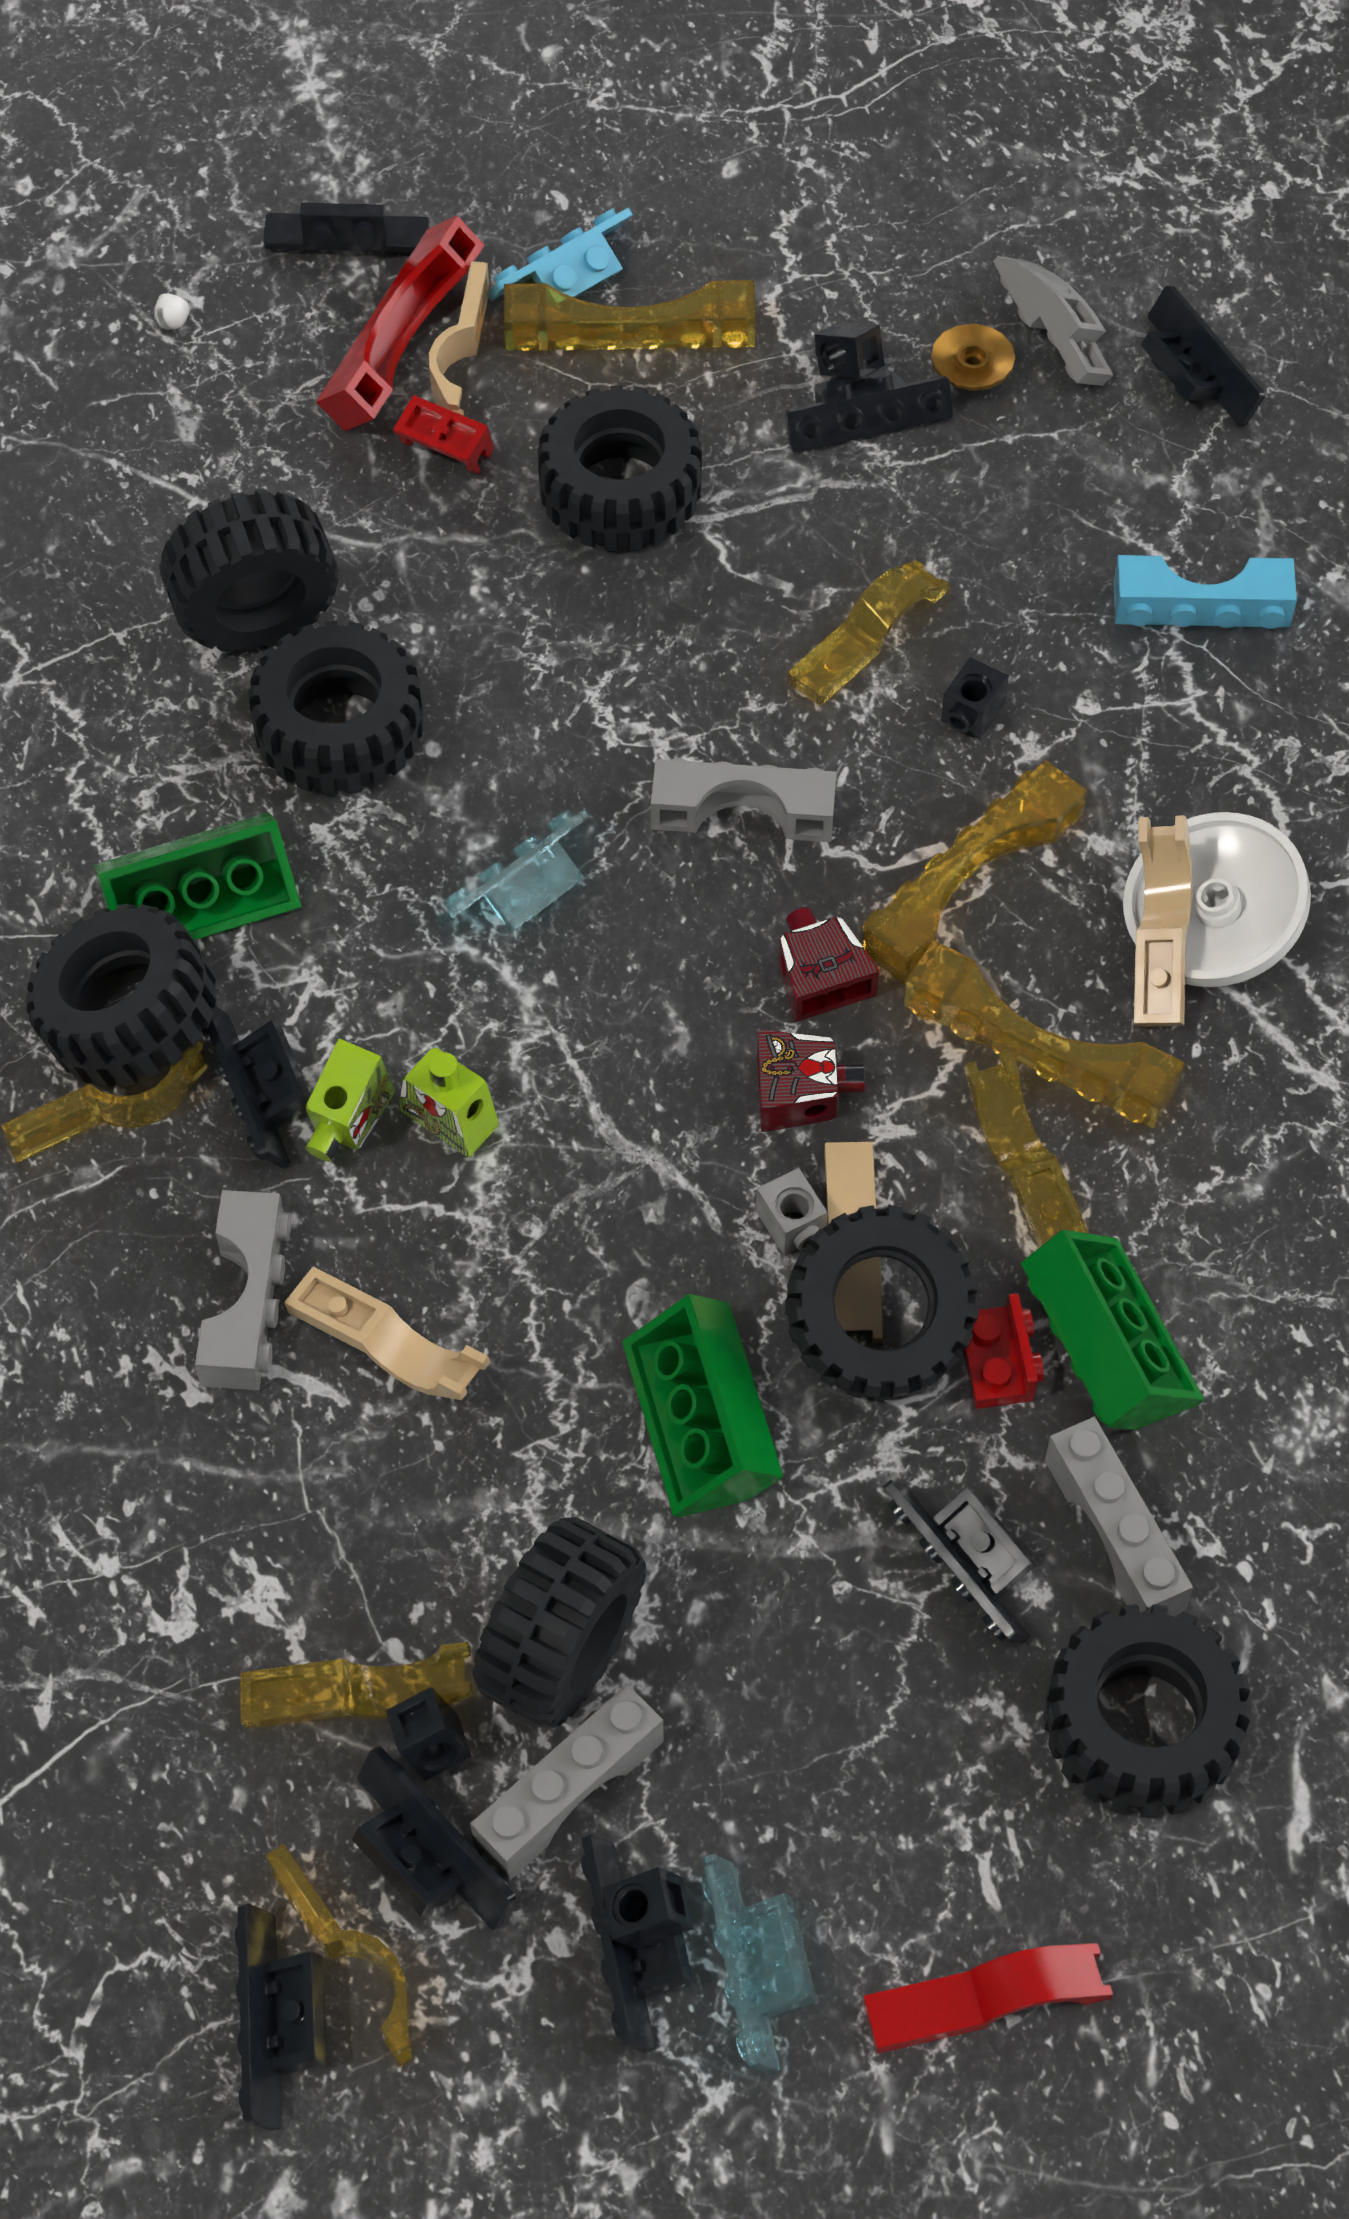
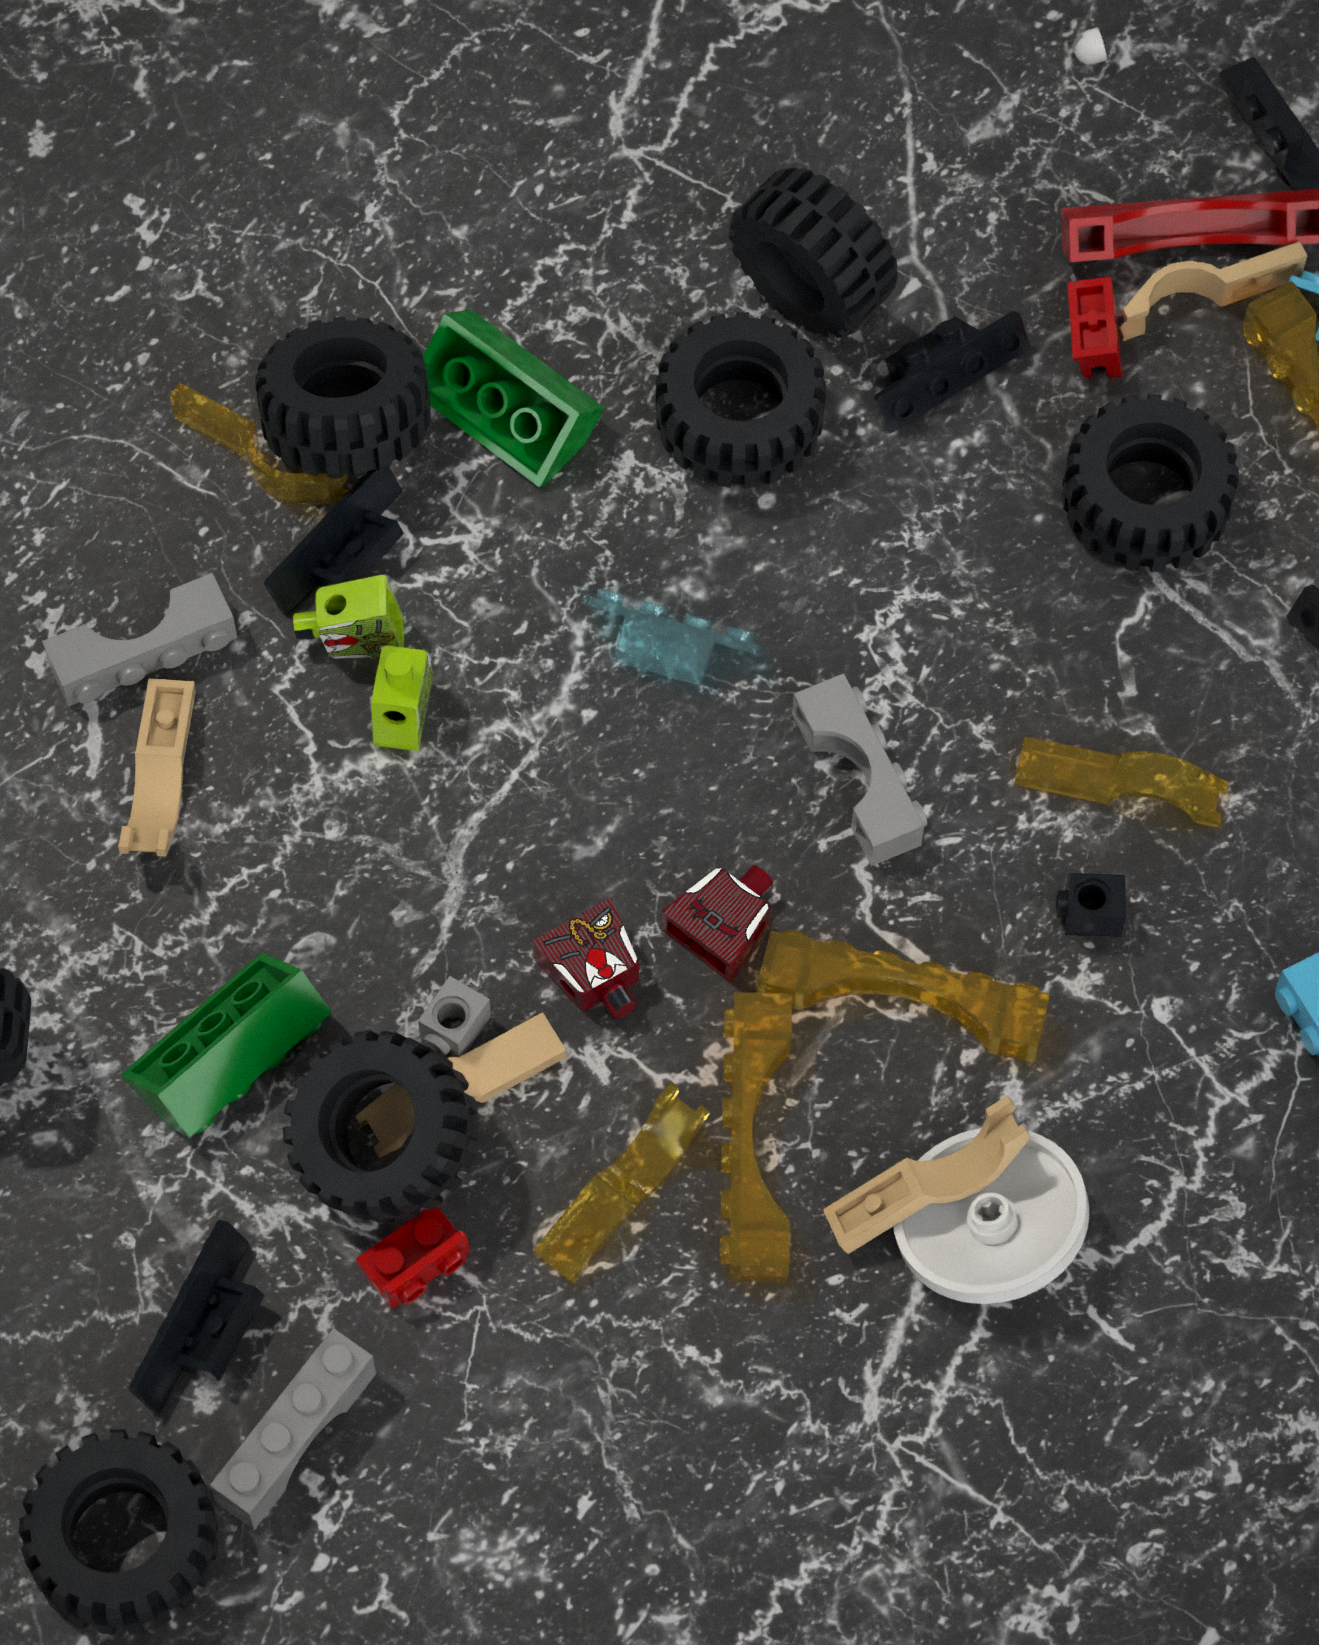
camera: 60 degrees right, 5 degrees up
(396, 556) = (946, 364): none -> black bracket
(1110, 1330) = (487, 1337): green slope -> none

